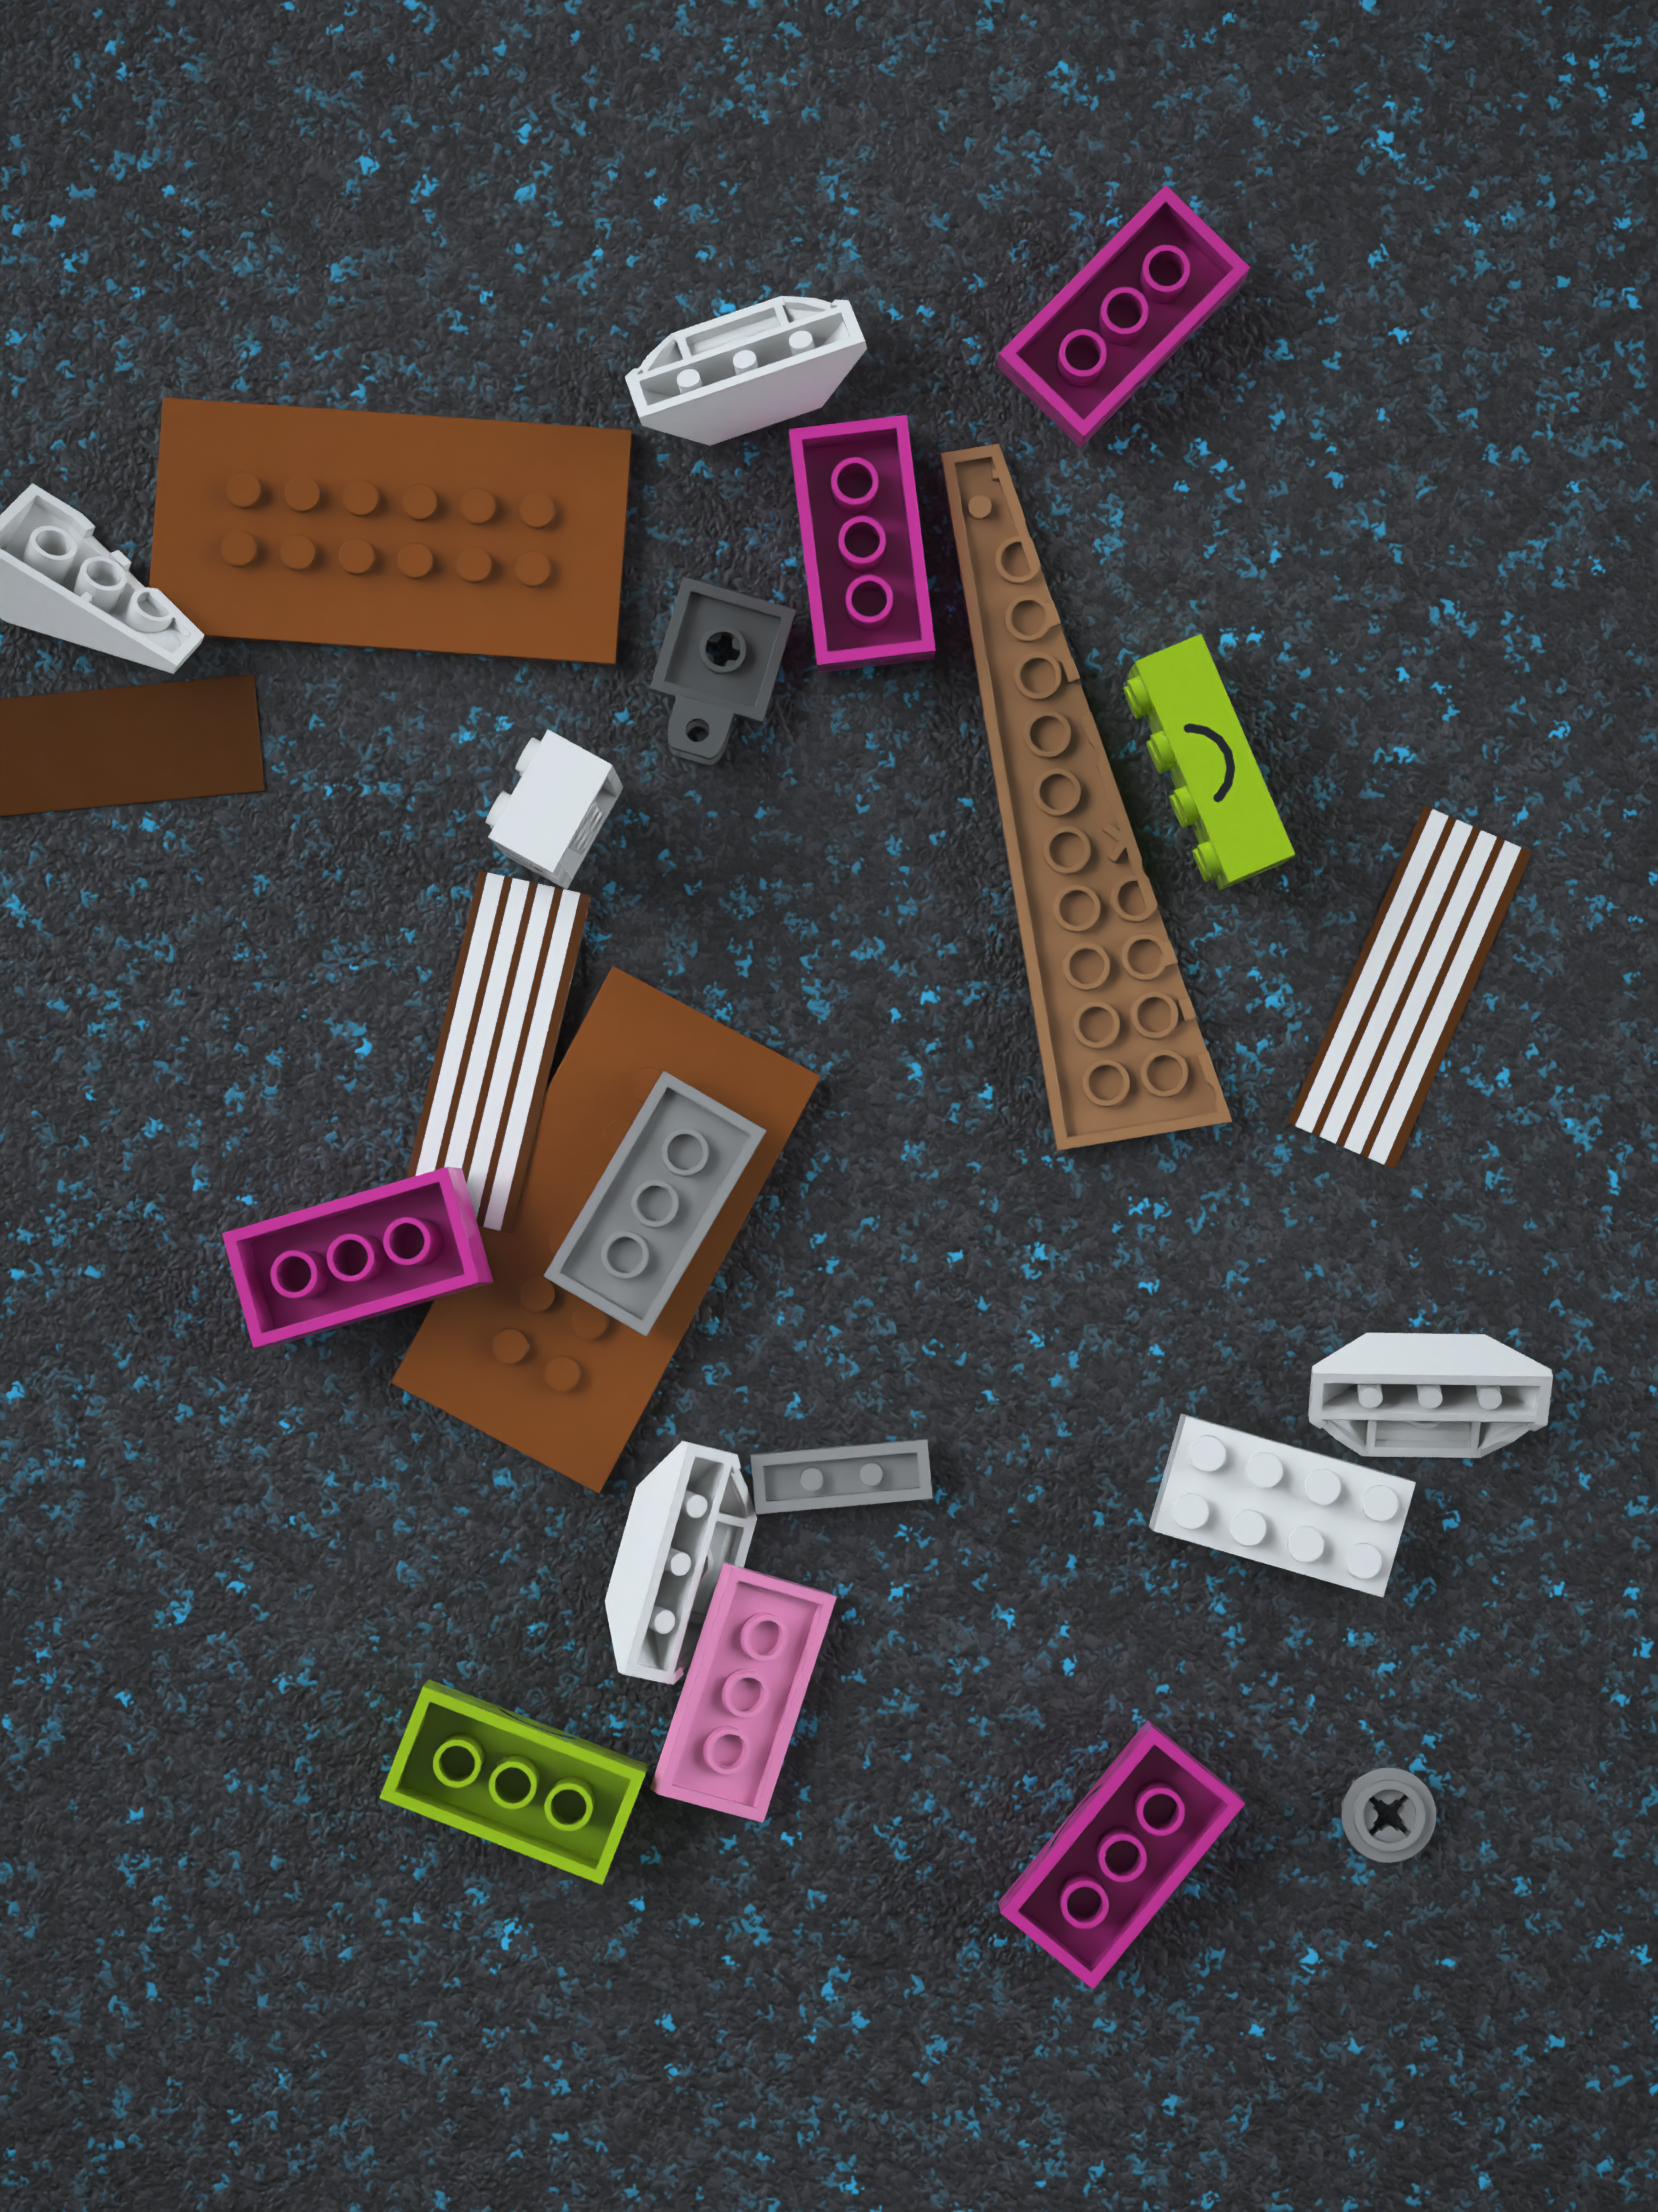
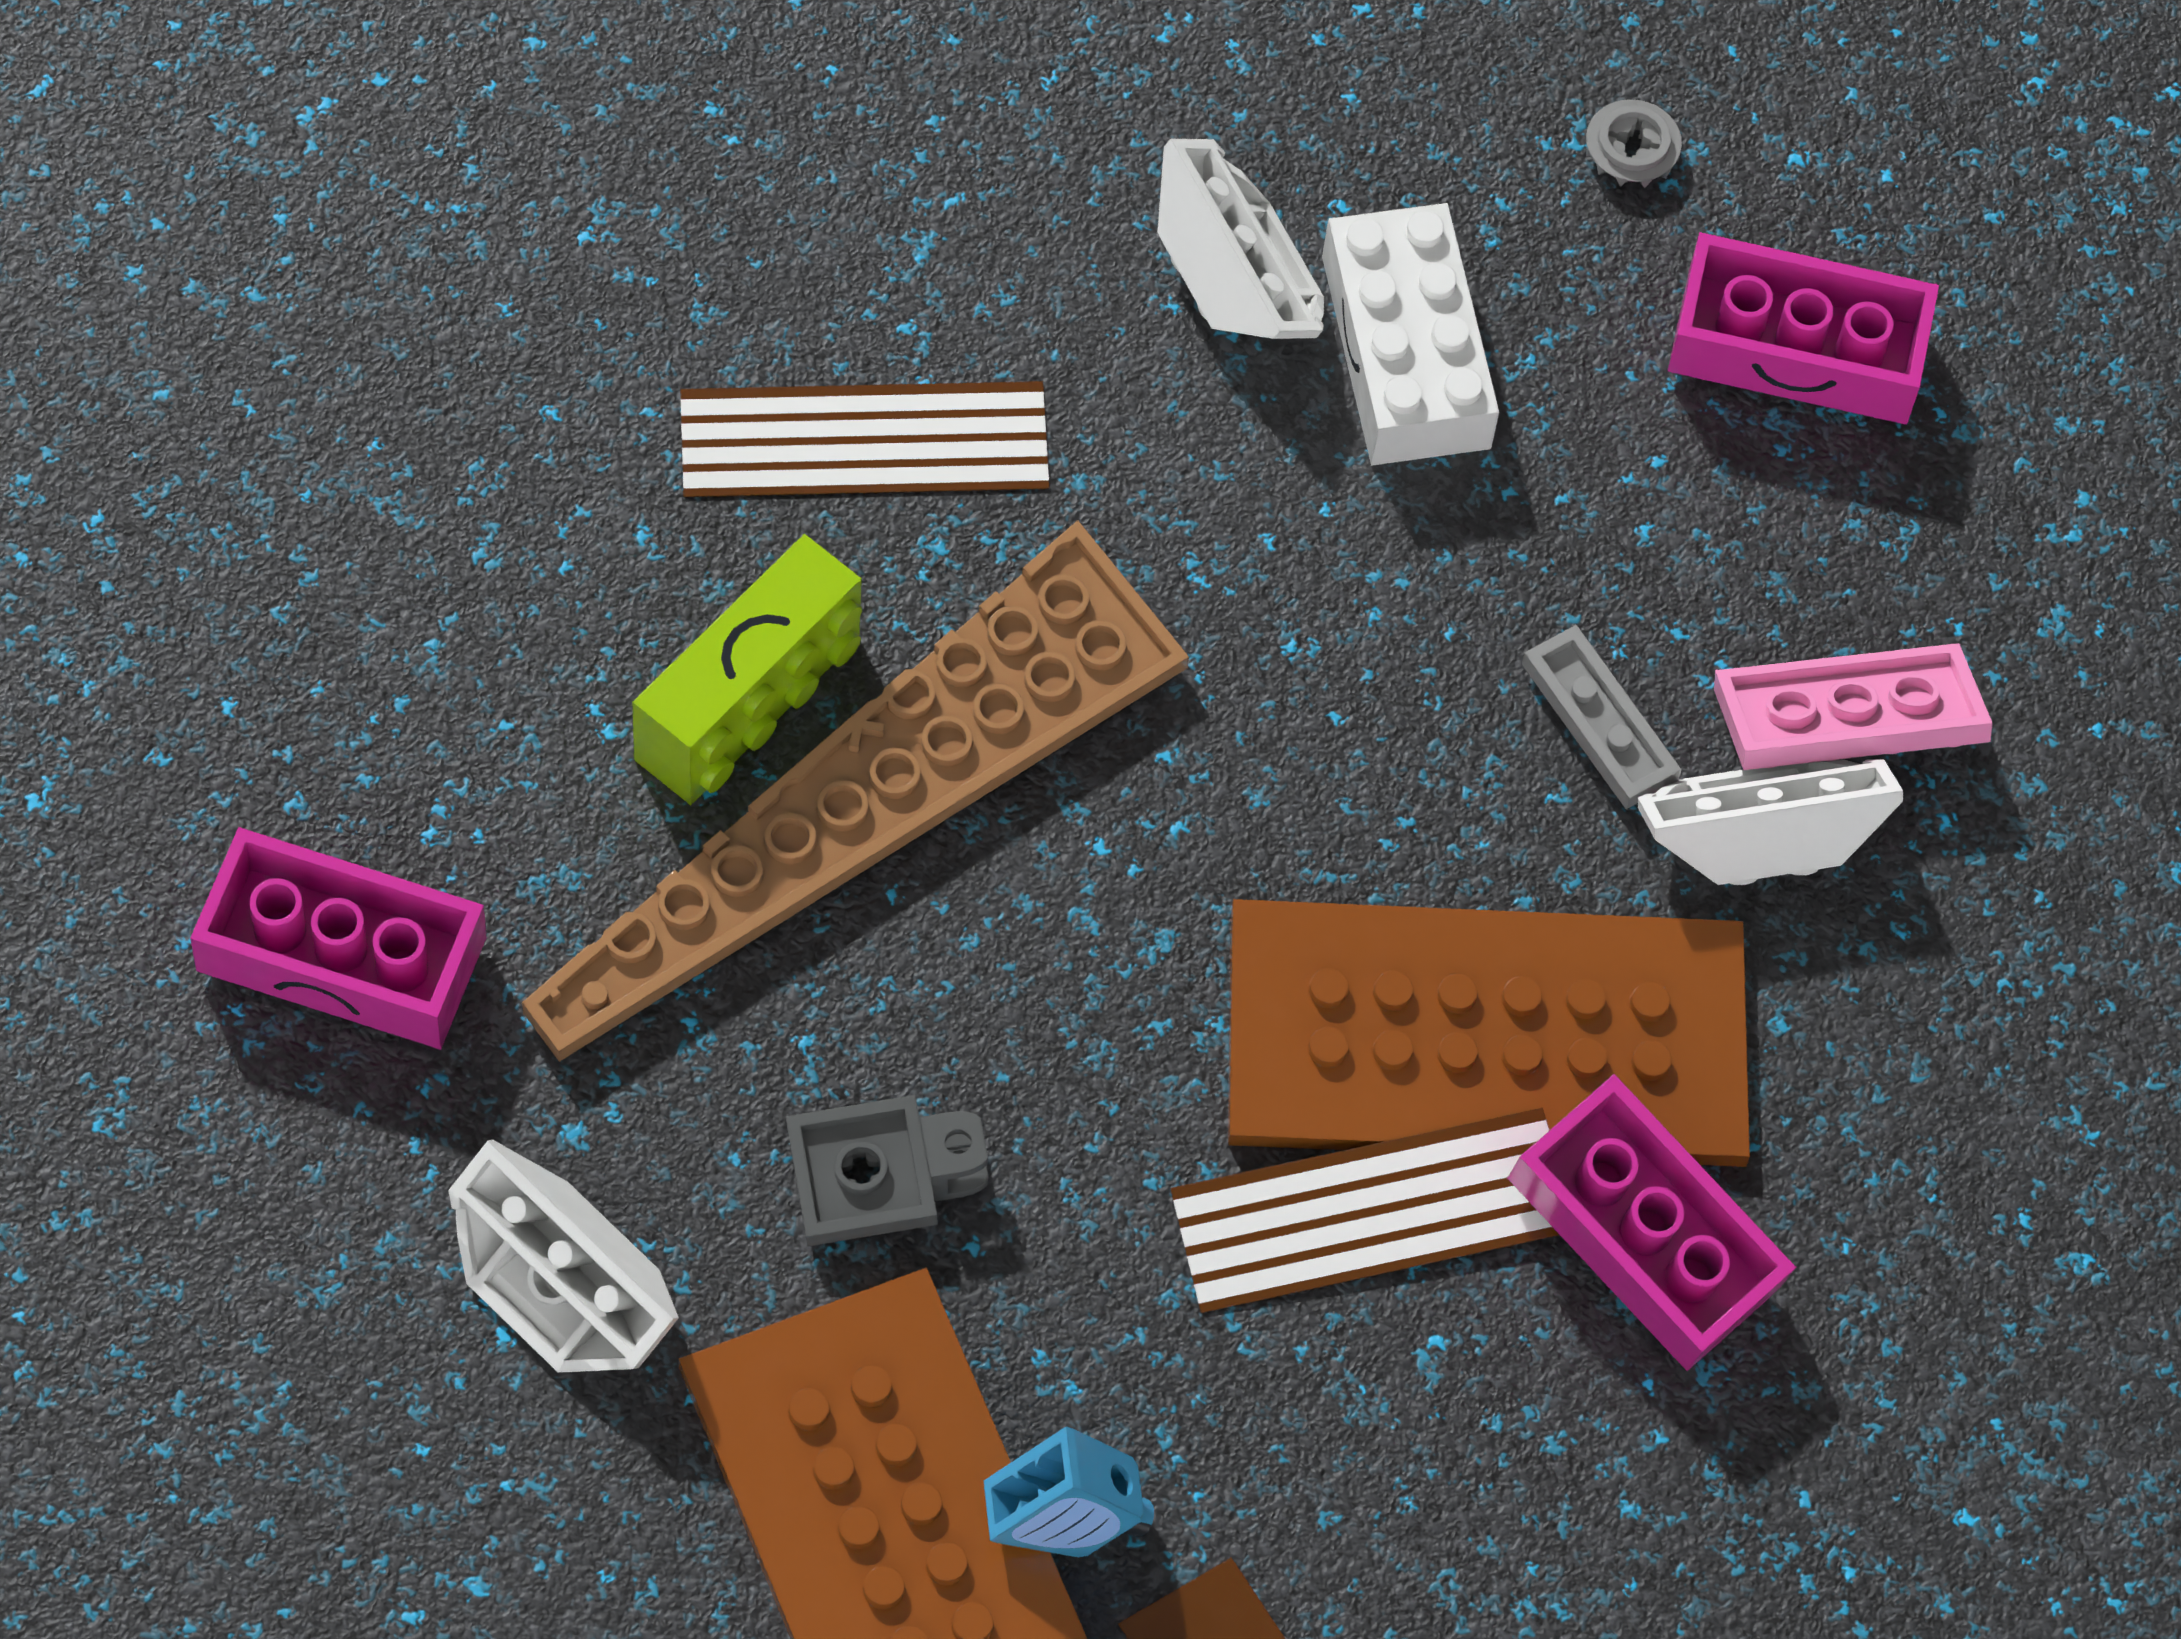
camera: 125 degrees left, 25 degrees down
(348, 682) = (1067, 1497): none -> dark azure torso
(514, 1781) = (2056, 865): lime brick -> none
(554, 808) = (1116, 1205): white brick -> none
(655, 1203) = (1442, 976): light grey plate -> none
(862, 544) = (690, 1077): dark pink brick -> none

